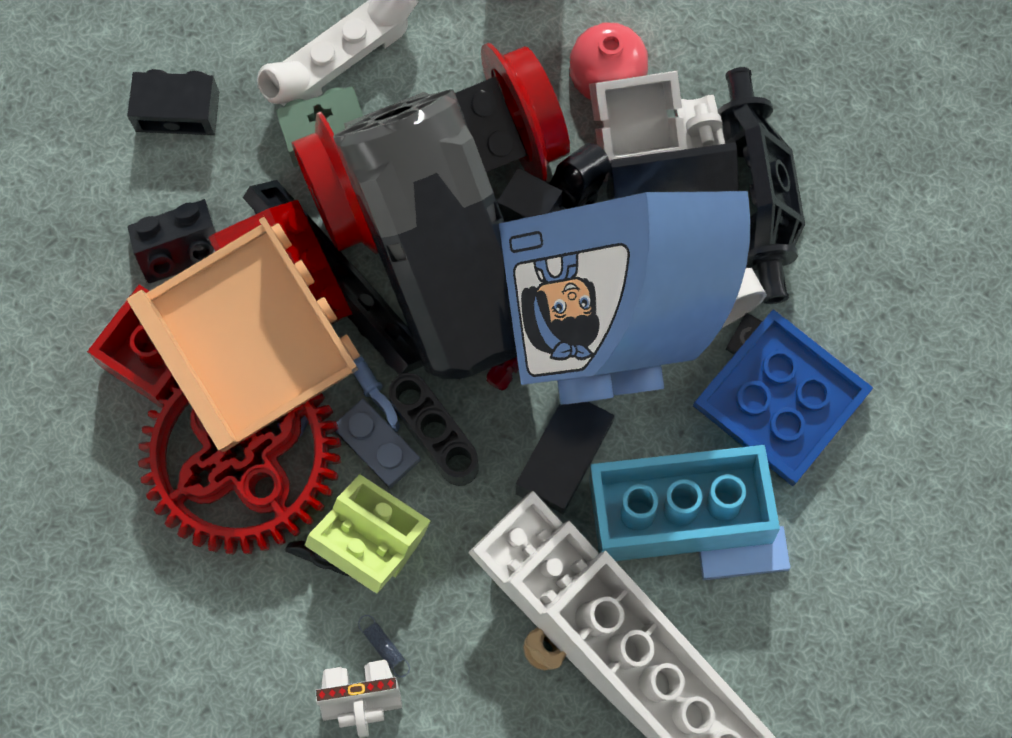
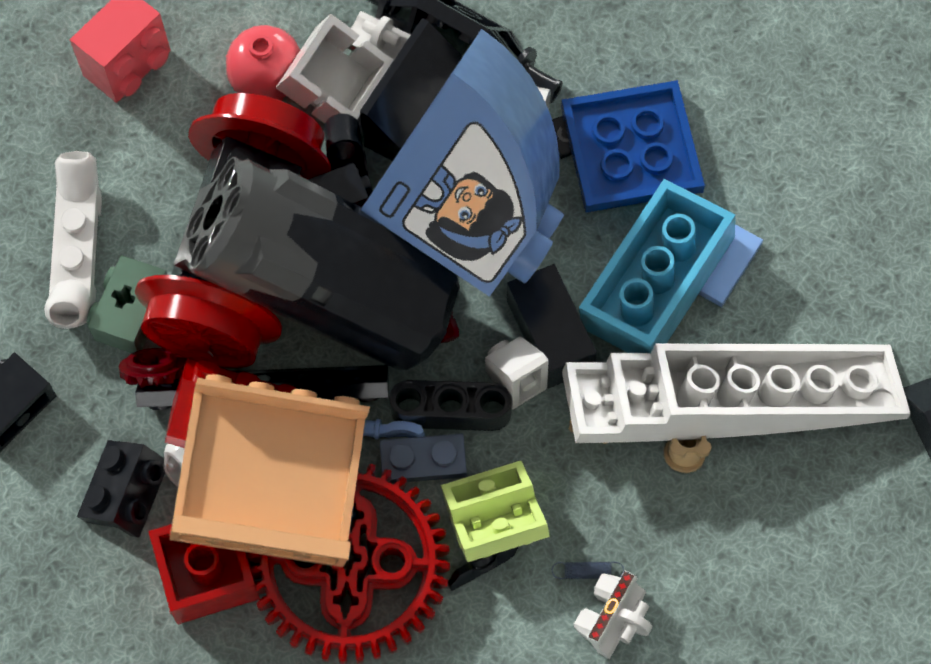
camera: 50 degrees left, 5 degrees down
(282, 181) = (151, 367): none -> dark red gear
(502, 456) = (518, 368): none -> white slope

